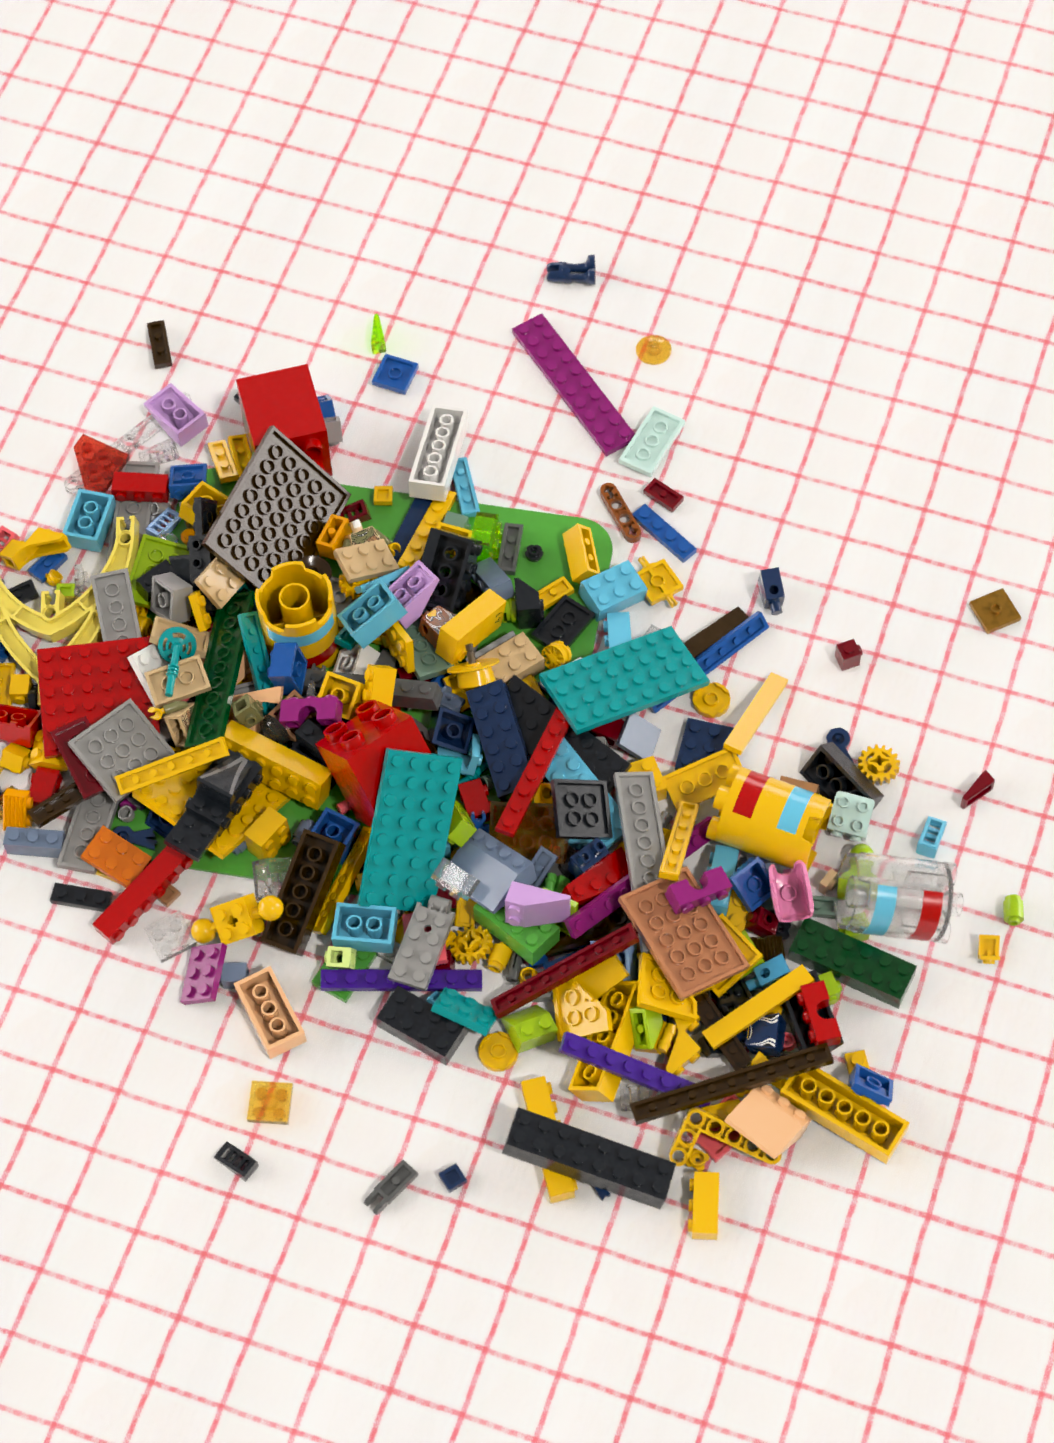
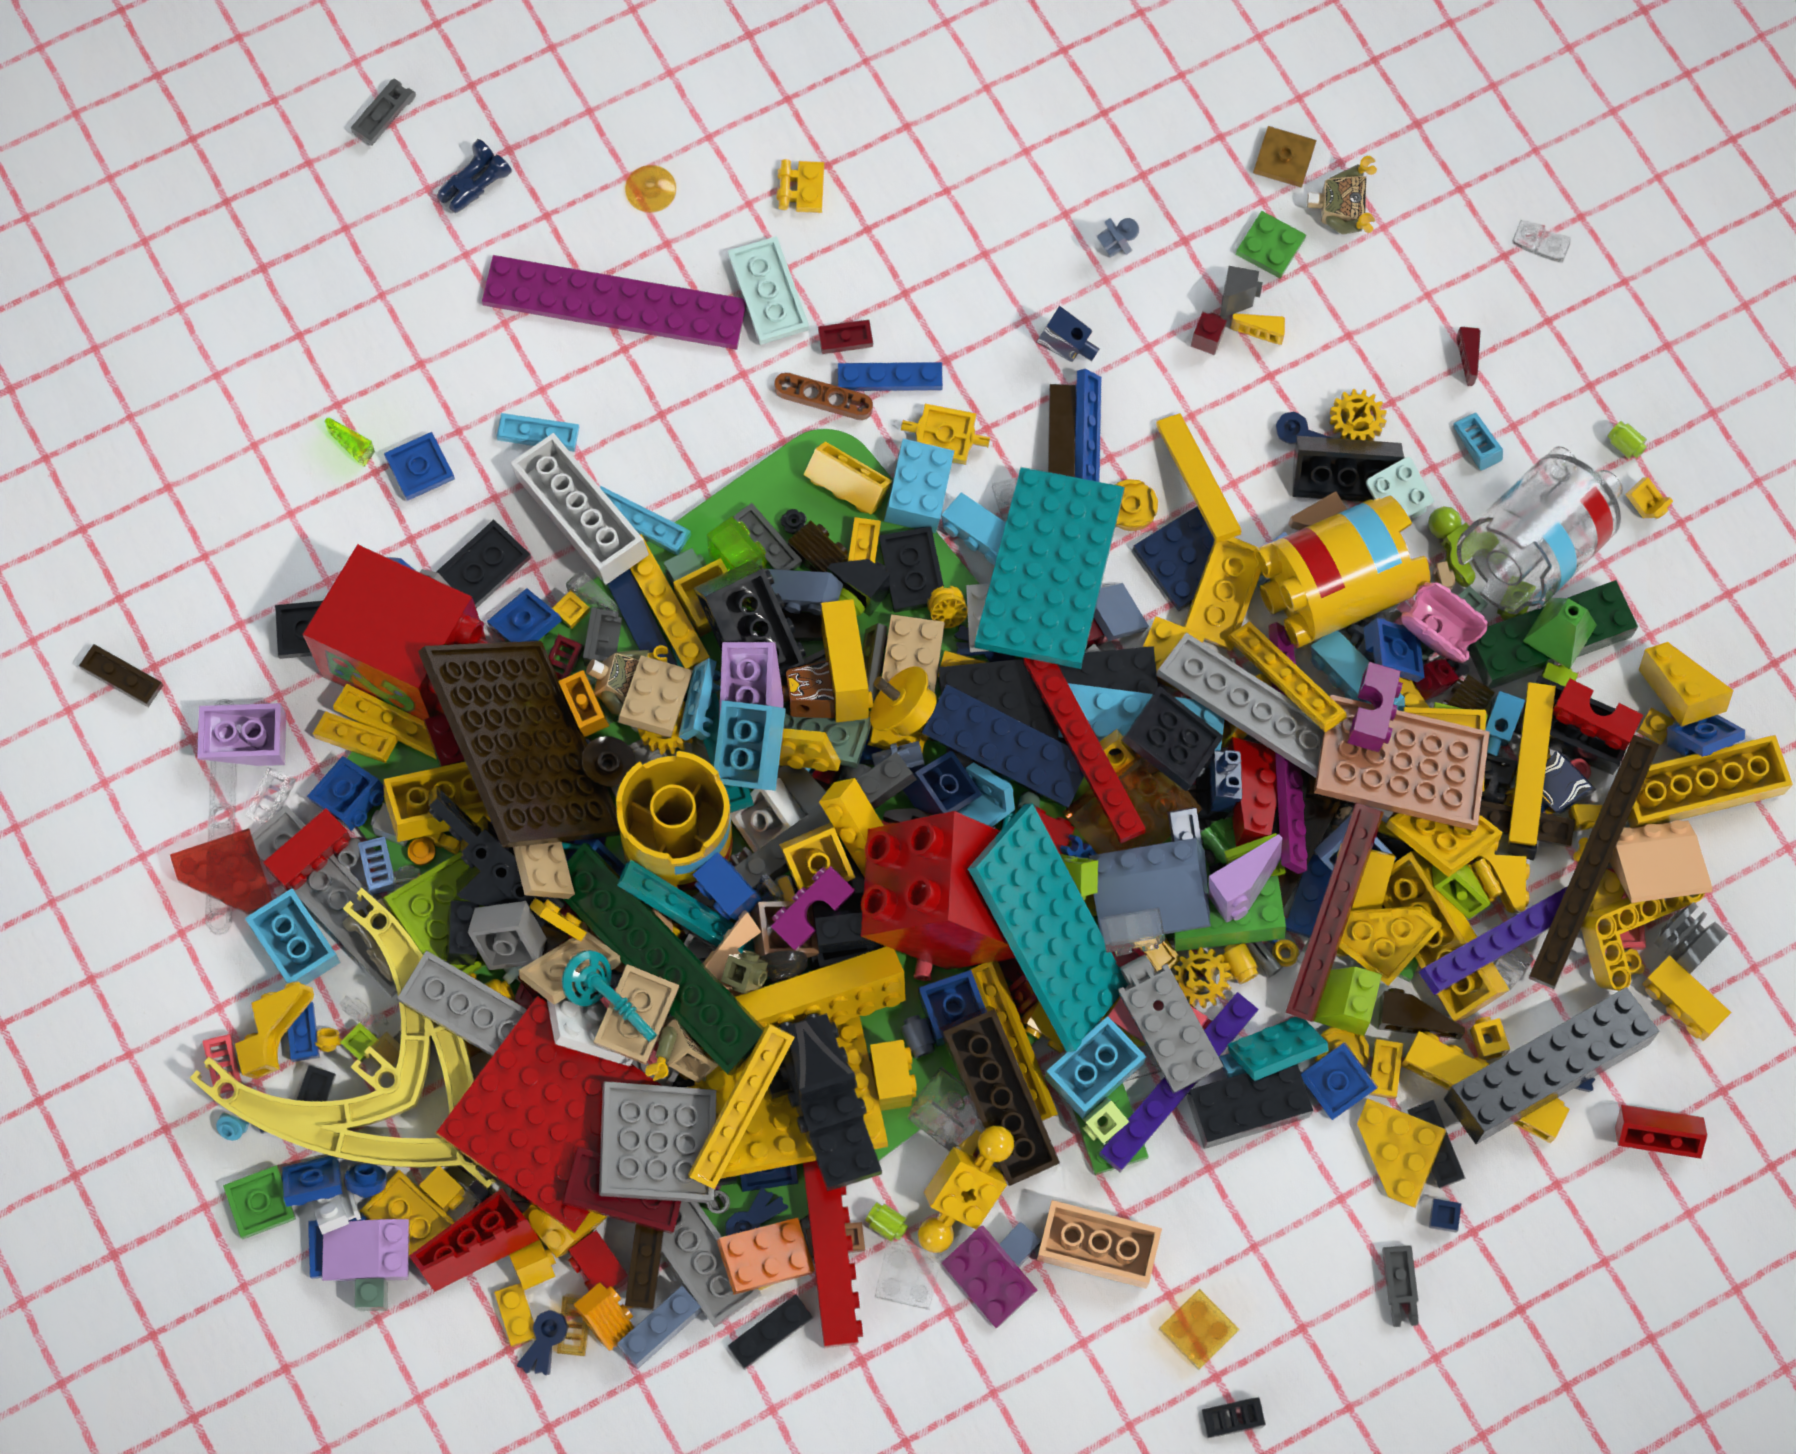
camera: 55 degrees left, 10 degrees up
(190, 902) = (886, 1222): none -> lime brick
(358, 480) = (524, 619): none -> blue plate
(370, 442) = (485, 563): none -> black plate
(383, 518) = (602, 635): none -> dark grey hinge
(400, 490) = (590, 592): none -> clear slope
(461, 399) = (534, 430): none -> medium azure tile
(469, 1124) = (1400, 1149): none -> yellow plate
(477, 1058) = (1338, 1081): none -> blue plate
(489, 1140) = (1446, 1164): none -> black plate
(508, 1079) = (1386, 1068): none -> yellow plate
(528, 570) = (816, 547): none -> dark brown brick
(552, 1066) = (1410, 1015): none -> dark brown slope
(569, 208) = (382, 111): none -> dark grey plate
(579, 1111) = (1493, 1029): none -> yellow brick
(609, 1252) = (1661, 1131): none -> red brick
(730, 414) = (809, 189): none -> yellow plate
(741, 1176) = (1690, 937): none -> dark grey wheel
(851, 958) = (1561, 630): none -> bright green slope
(854, 567) = (1116, 238): none -> sand blue hips
(882, 679) = (1260, 326): none -> yellow slope
(886, 648) = (1239, 290): none -> dark grey slope
(891, 1052) = (1683, 684): none -> yellow wedge
(935, 645) = (1271, 244): none -> bright green plate
(1000, 656) = (1345, 199): none -> torso

